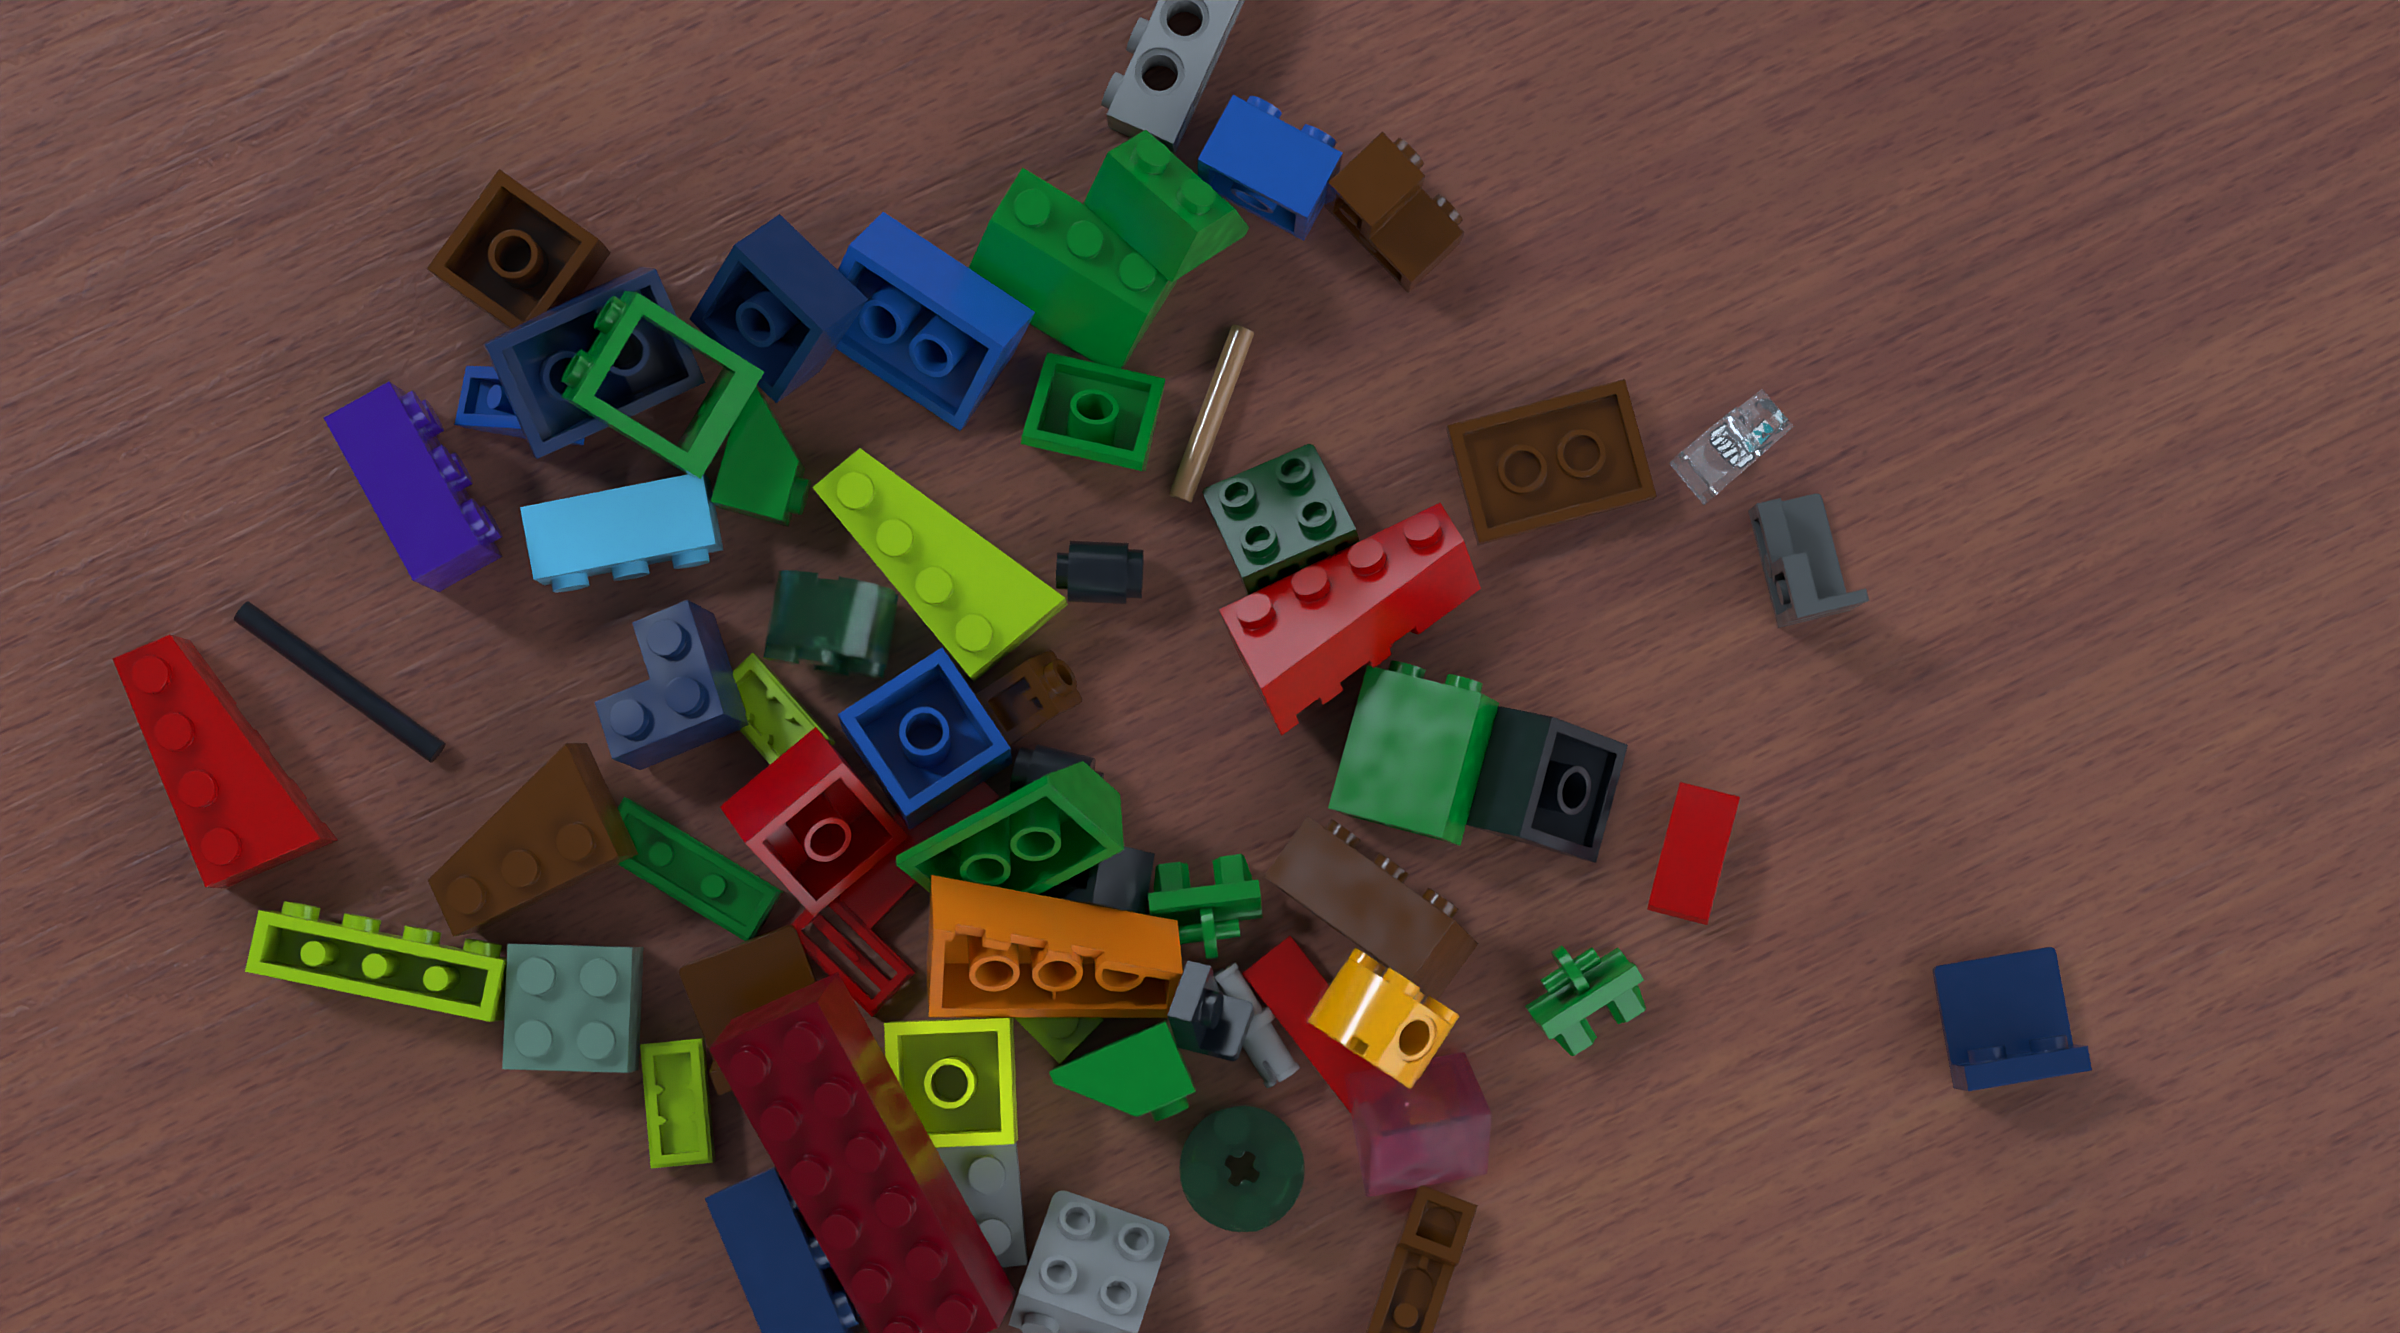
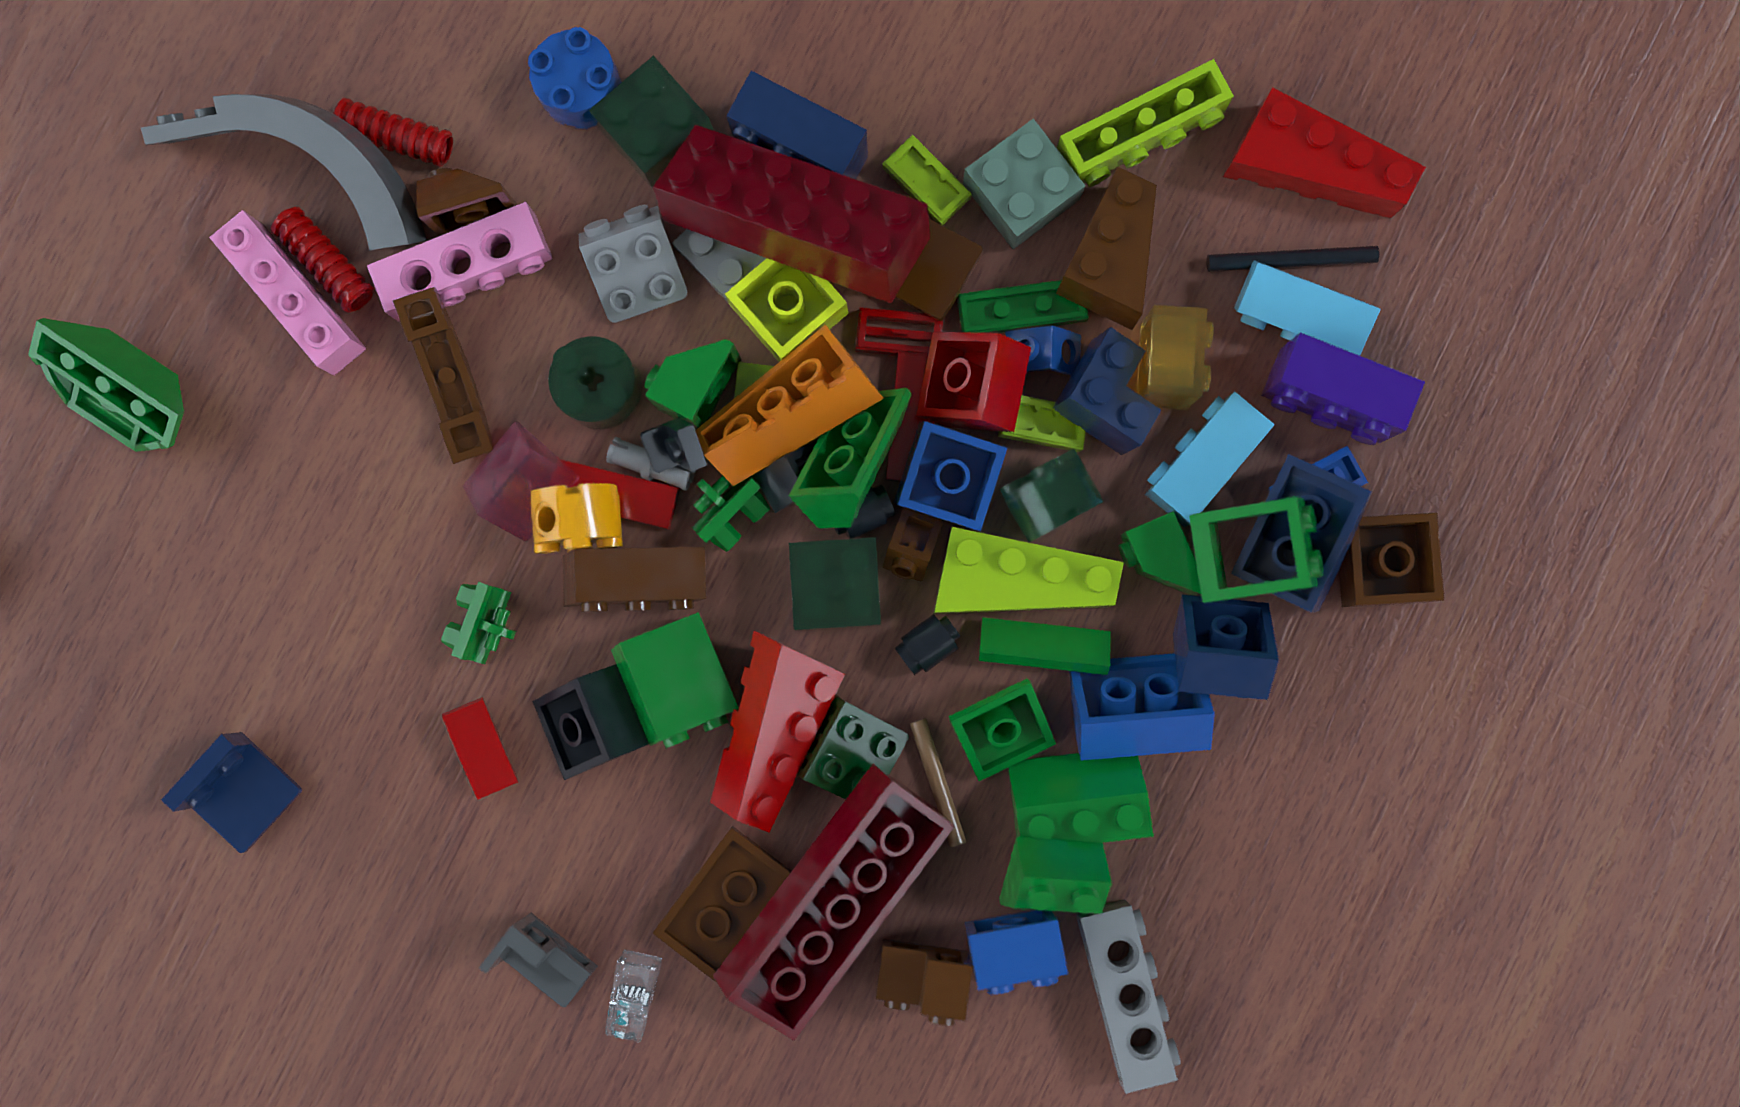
camera: 150 degrees right, 0 degrees up
(377, 609) = (1304, 307): none -> medium azure brick
(568, 670) = (1173, 365): none -> clear yellow brick
(699, 799) = (1047, 348): none -> blue bracket
(972, 468) = (1045, 646): none -> green tile
(1150, 718) = (834, 584): none -> clear green brick
(1428, 371) = (832, 903): none -> dark red brick

